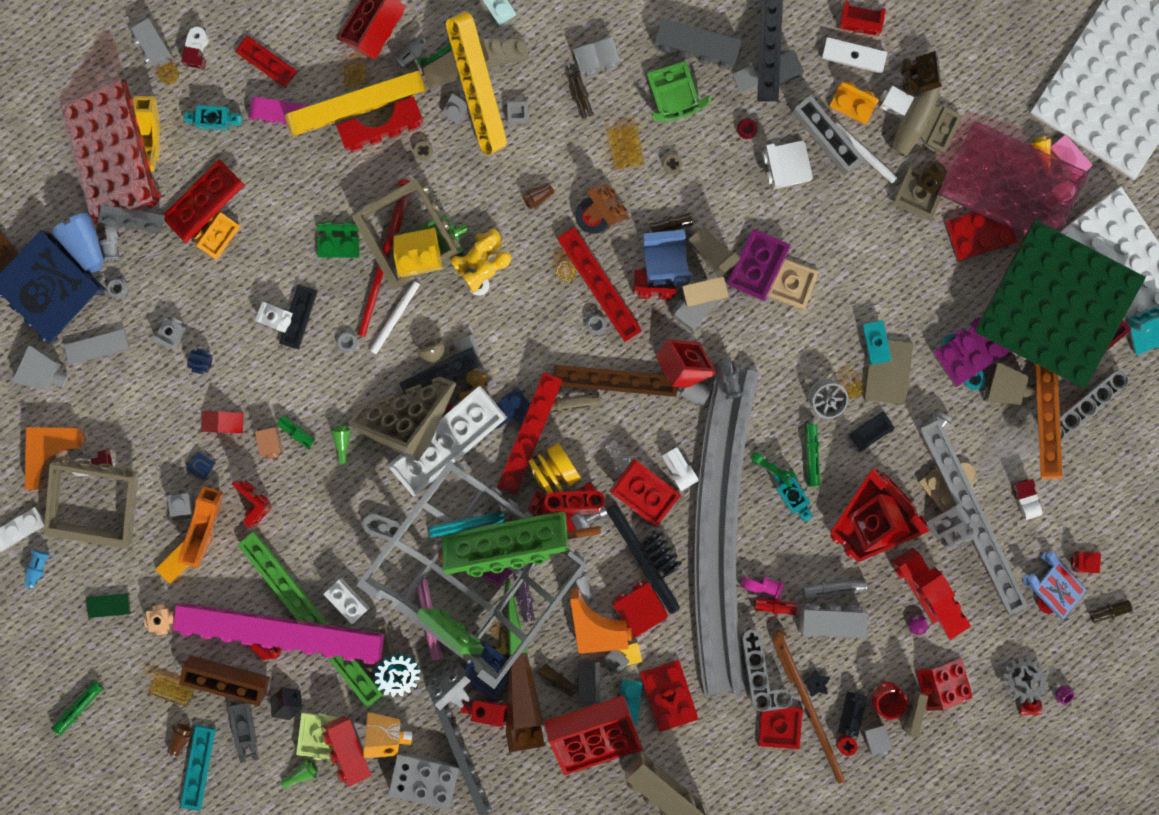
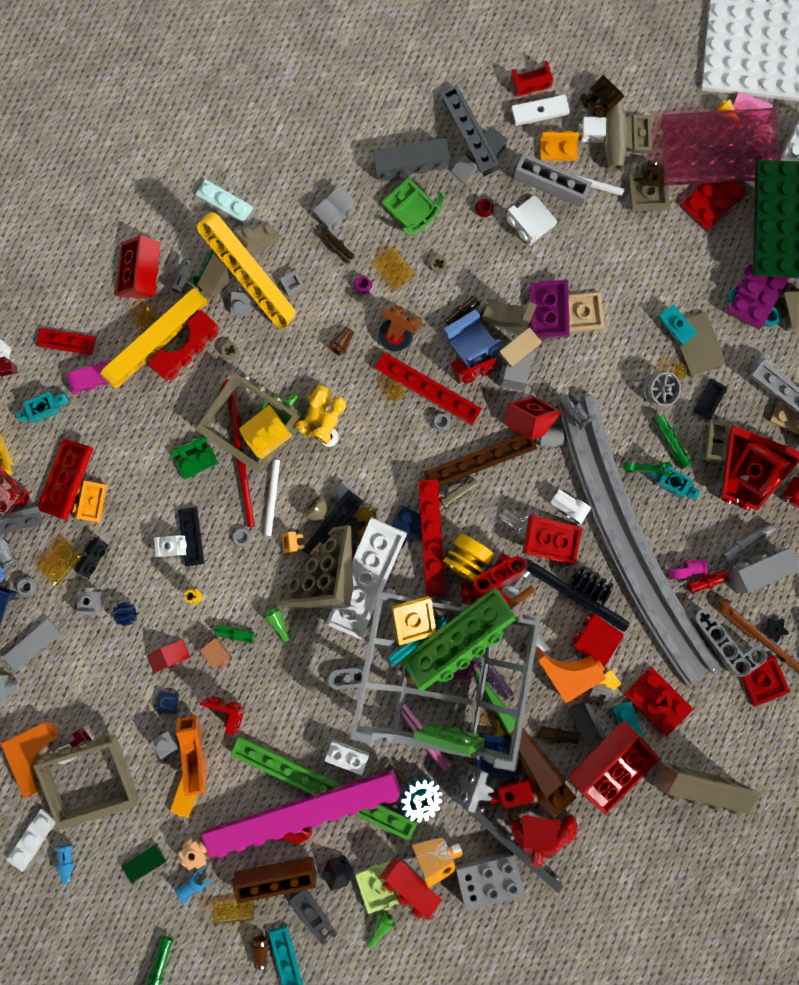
camera: 25 degrees left, 5 degrees down
(143, 648) = (191, 886): none -> dark azure piece
(160, 279) = (60, 561): none -> clear yellow plate
(184, 296) = (95, 551): none -> black hinge
(269, 379) = (189, 593): none -> yellow pin
(391, 369) = (289, 542): none -> light orange tile
(471, 504) = (413, 620): none -> yellow plate
(494, 764) = (542, 836): none -> red torso
(587, 143) = (362, 280): none -> magenta plate
(852, 475) = (715, 441): none -> dark tan brick

